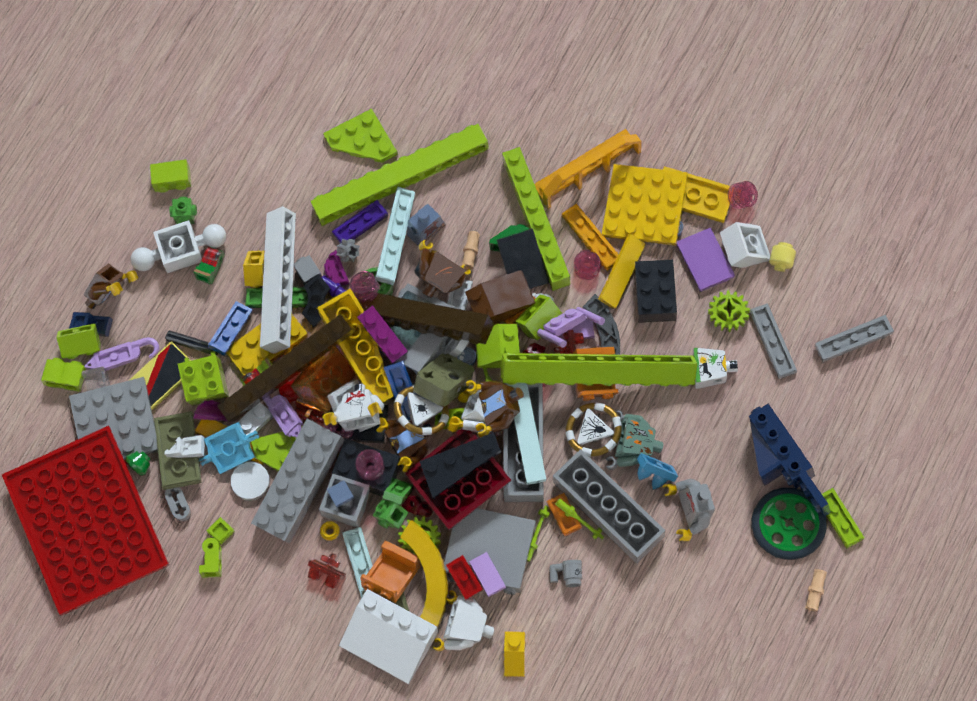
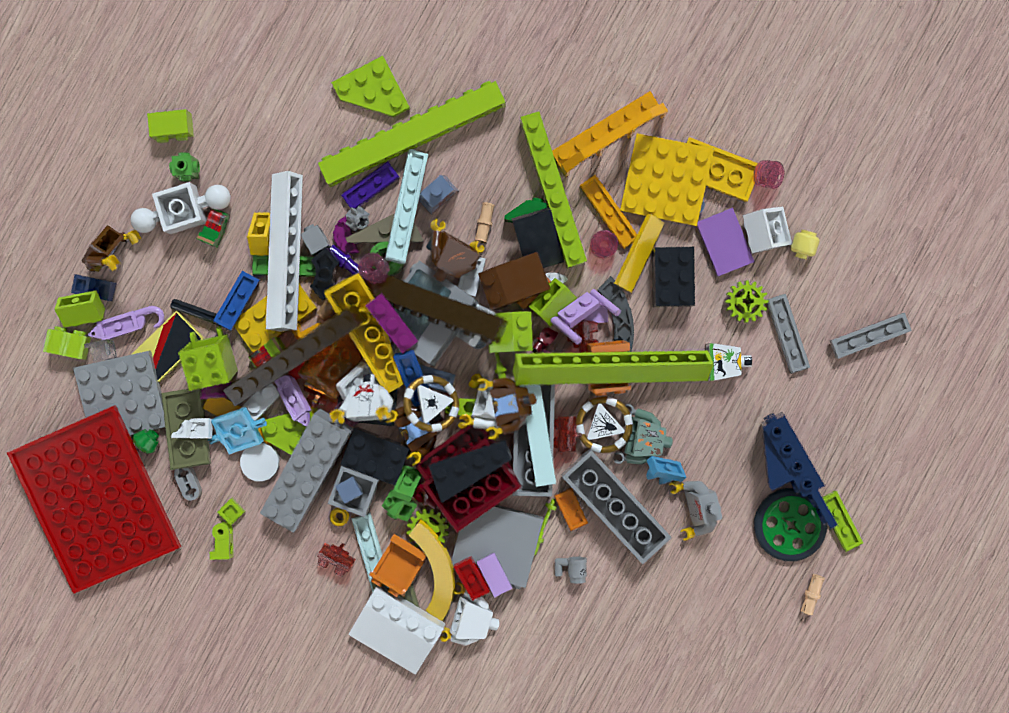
camera: 10 degrees left, 20 degrees up
(370, 260) = (381, 232): none -> dark tan wing
(371, 472) = (386, 458): clear pink wheel -> none
(443, 379) = (454, 370): olive axle -> none
(514, 654) = (518, 646): yellow slope -> none
(557, 440) = (566, 434): none -> clear red hips
(569, 511) = (577, 510): lime piece -> none

